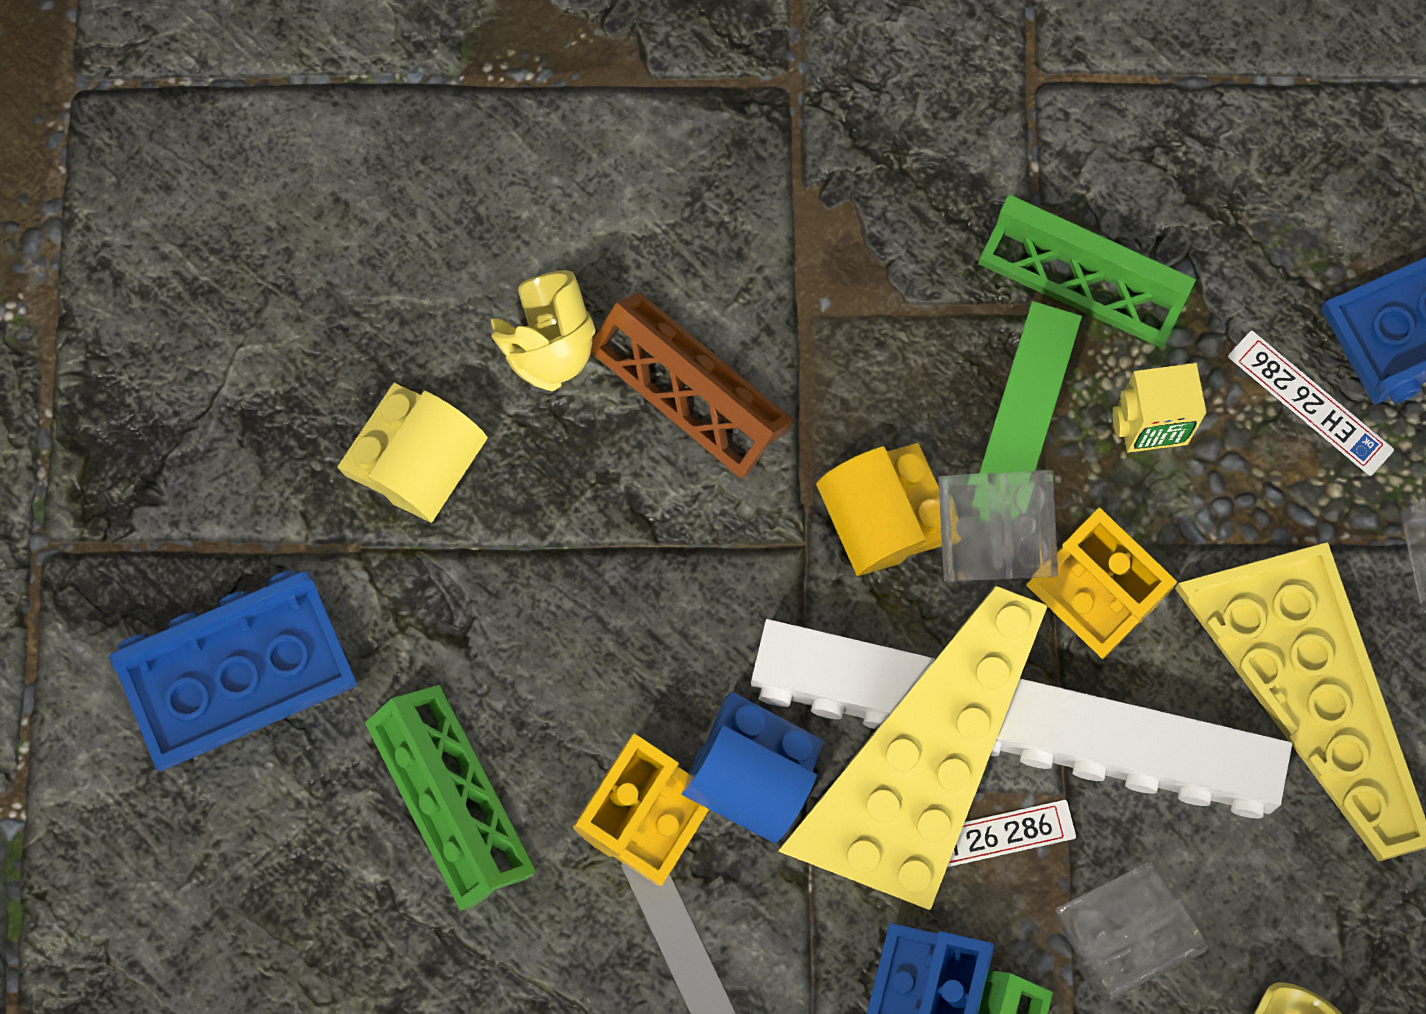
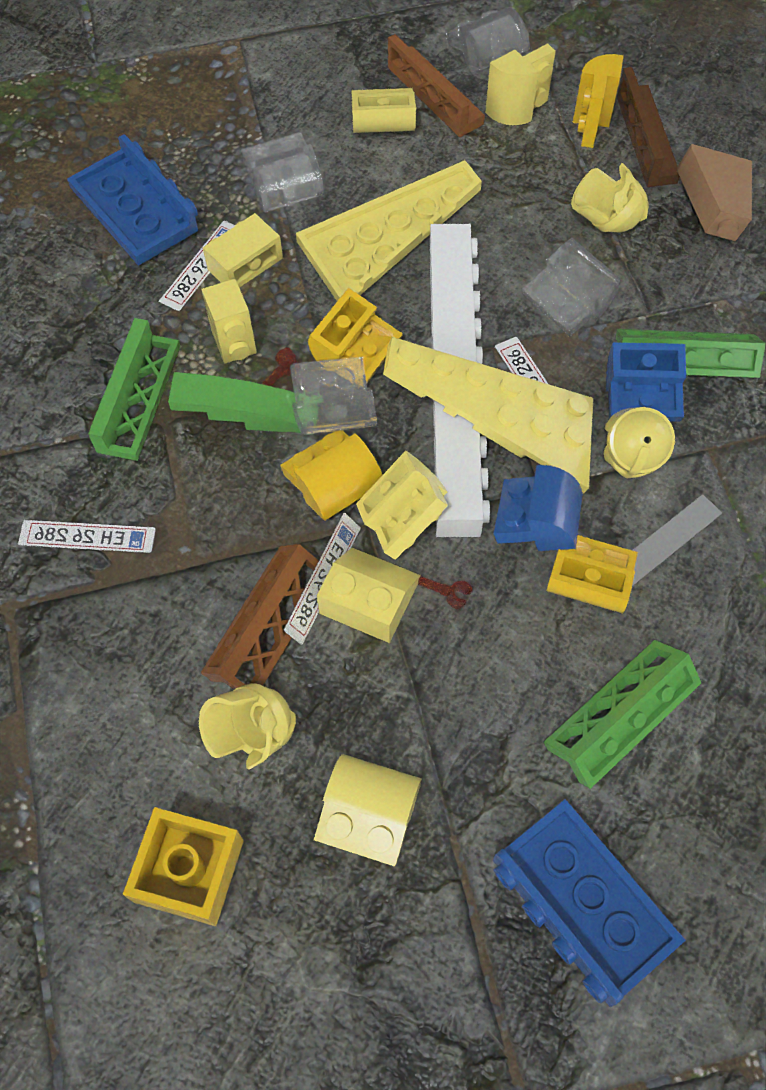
camera: 100 degrees left, 10 degrees down
(396, 230) = (184, 866): none -> yellow brick
(678, 618) = (448, 591): none -> clear red hand
(696, 516) = (367, 593): none -> light yellow slope
(731, 464) = (307, 606): none -> clear sticker
(799, 578) = (402, 504): none -> light yellow brick
(841, 949) = (626, 443): none -> light yellow helmet
(873, 186) = (87, 536): none -> clear sticker
(1090, 488) = (284, 359): none -> clear red hand
(1307, 457) = (243, 251): none -> light yellow brick

